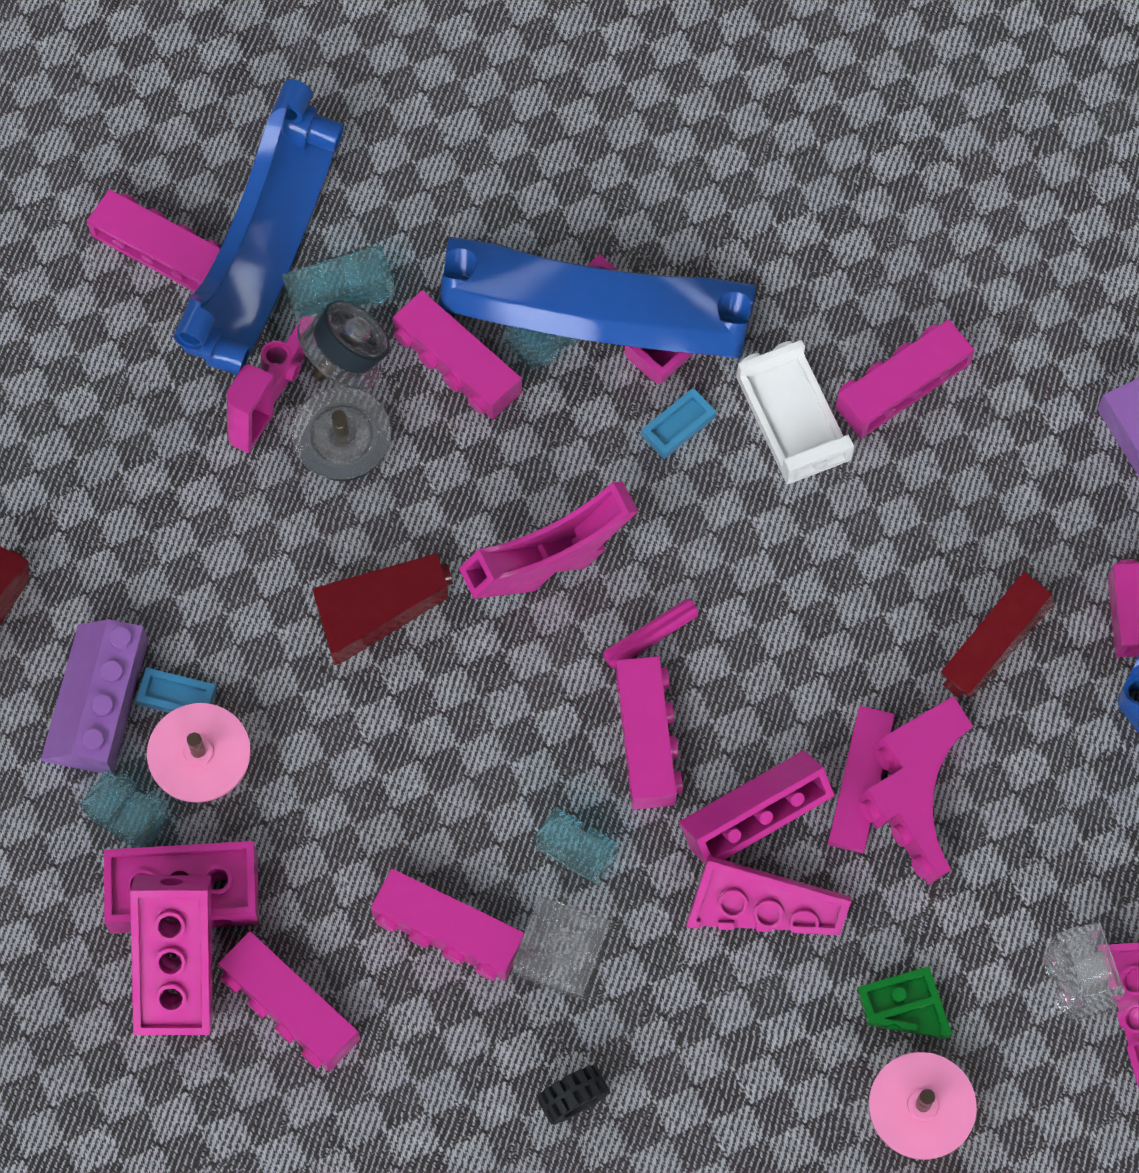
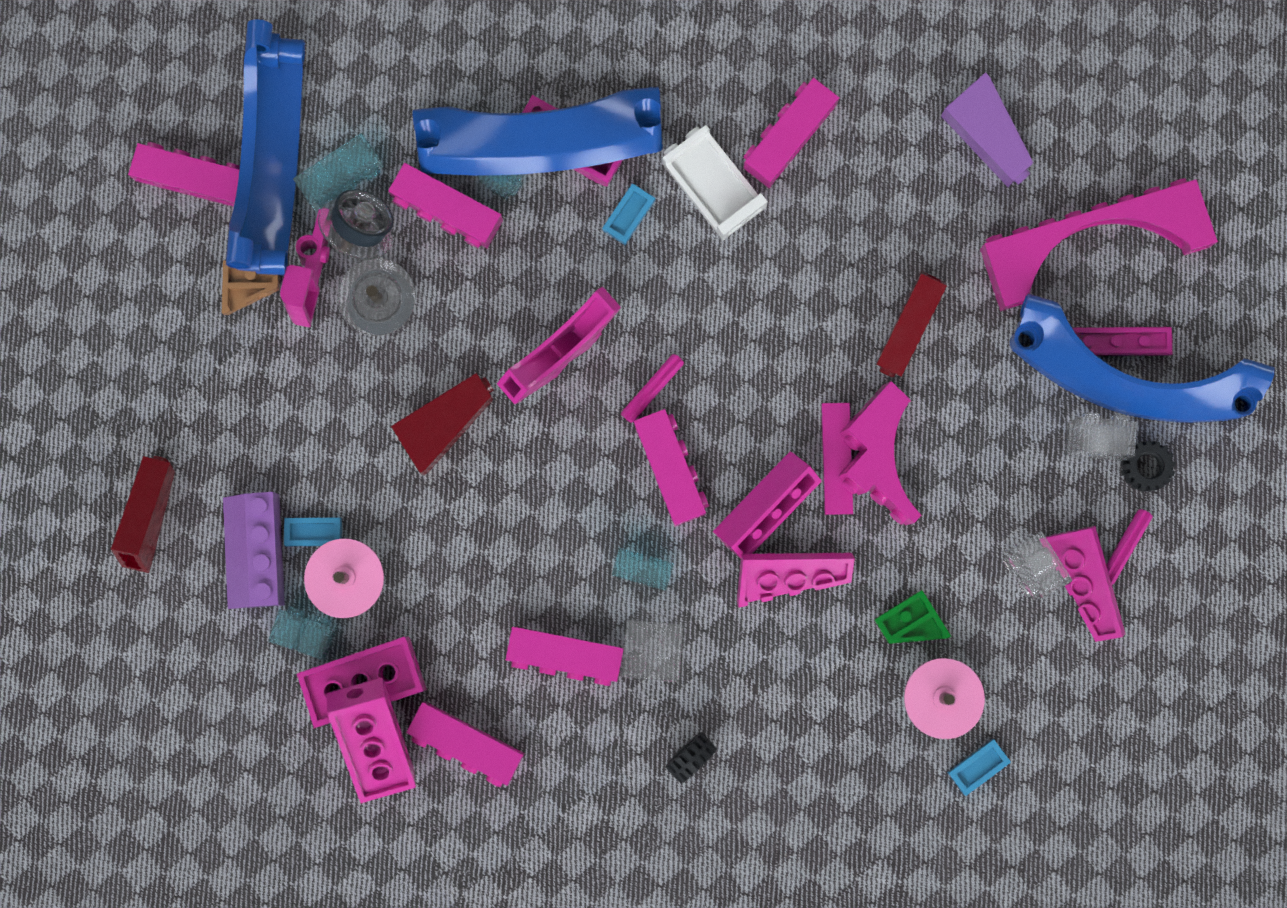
camera: 10 degrees left, 15 degrees up
(187, 383) = (245, 288): none -> medium nougat wing

